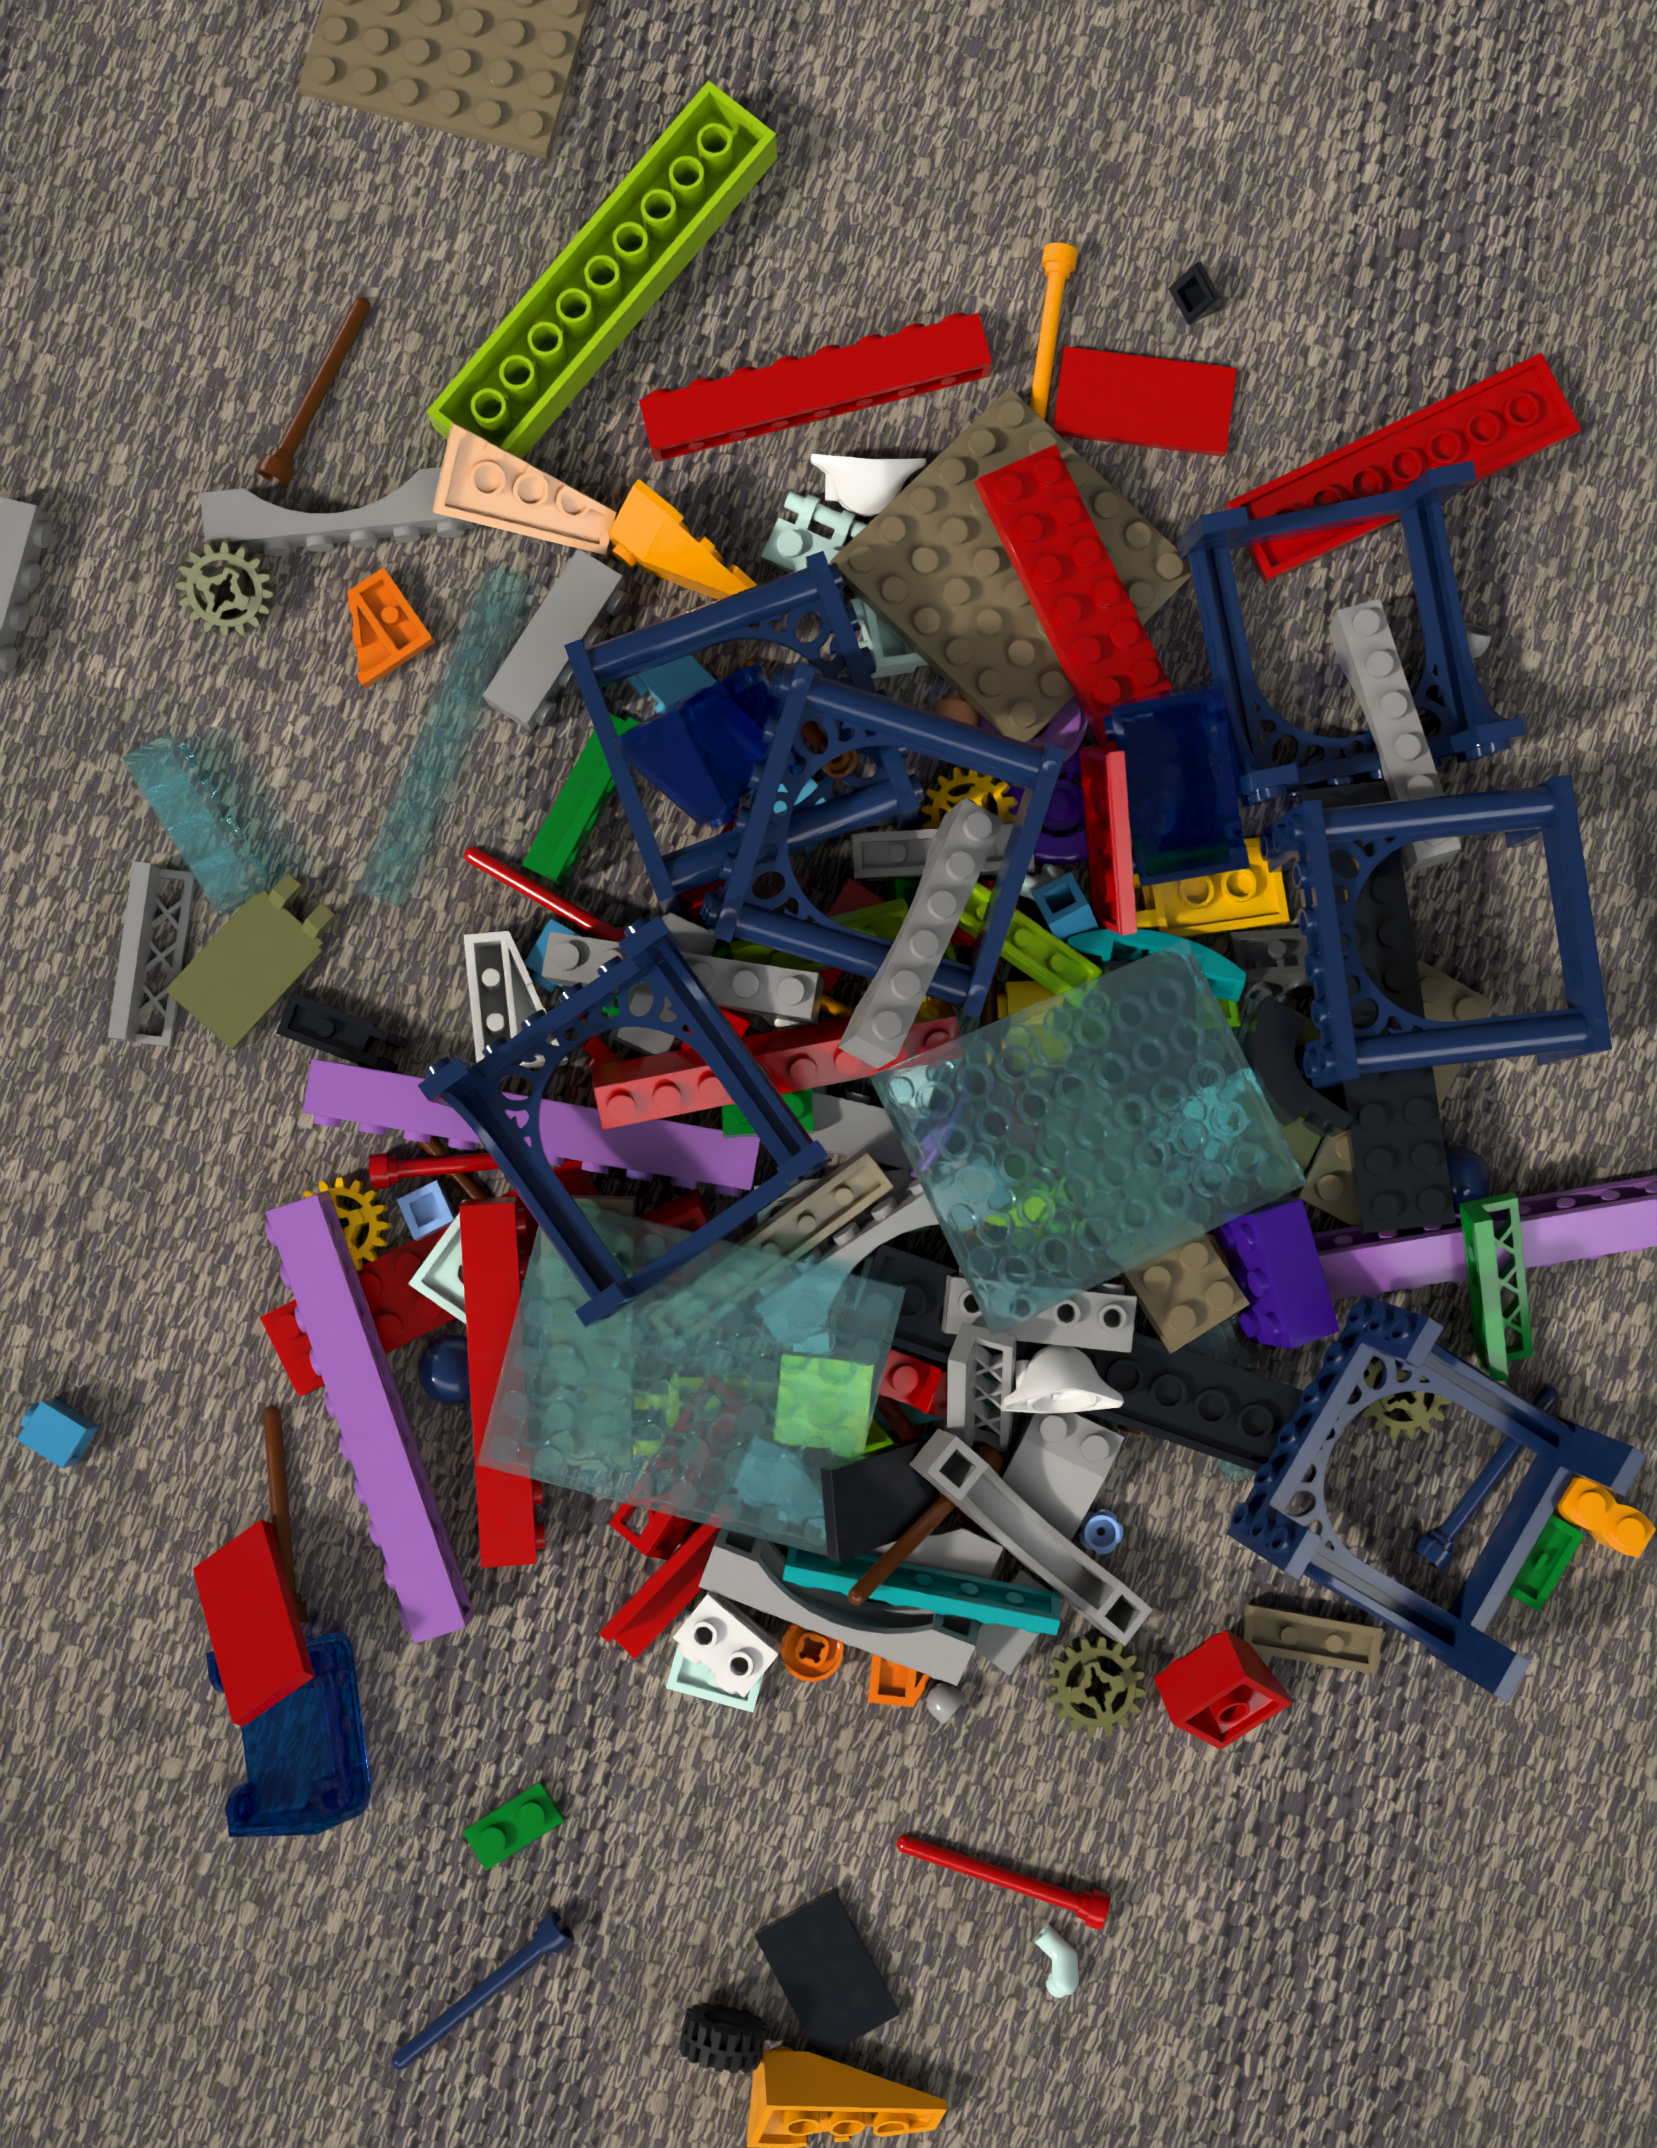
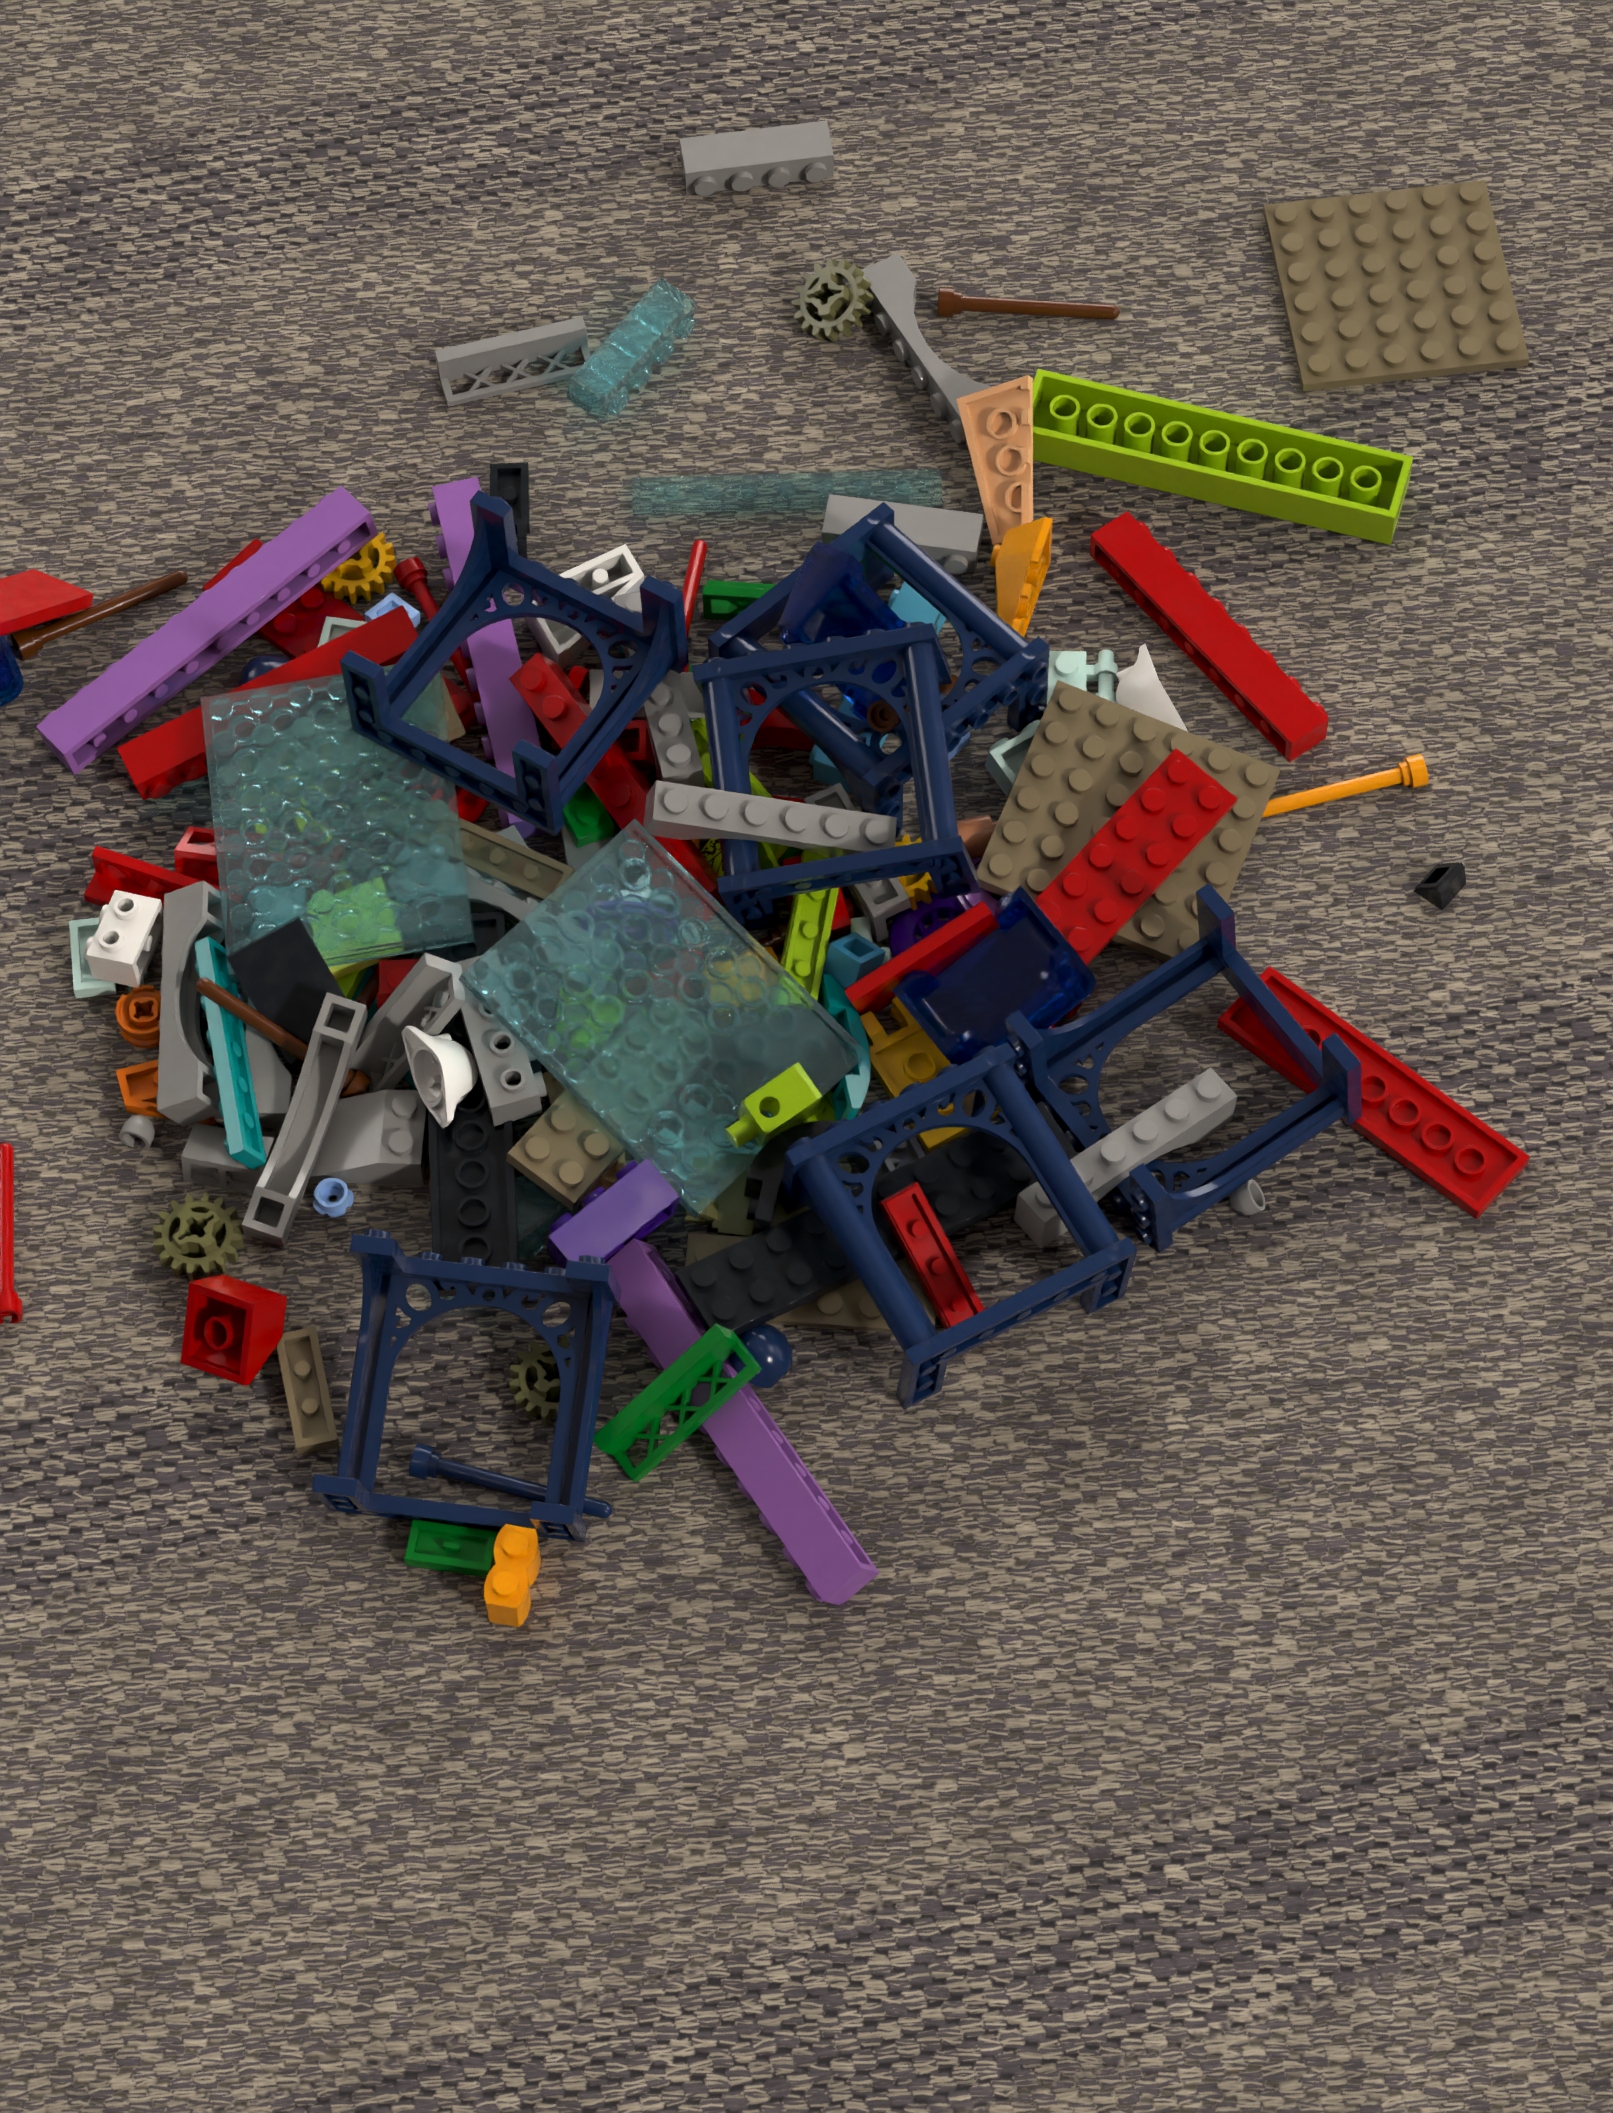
camera: 65 degrees right, 25 degrees down
(56, 1432) = (105, 438): dark azure brick -> none
(251, 963) = (541, 430): olive tile -> none
(383, 627) = (855, 419): orange wing -> none
(1144, 401) = (1327, 880): red tile -> none
(1245, 1062) = (787, 1098): none -> lime torso
(1448, 971) = (931, 1255): none -> red tile

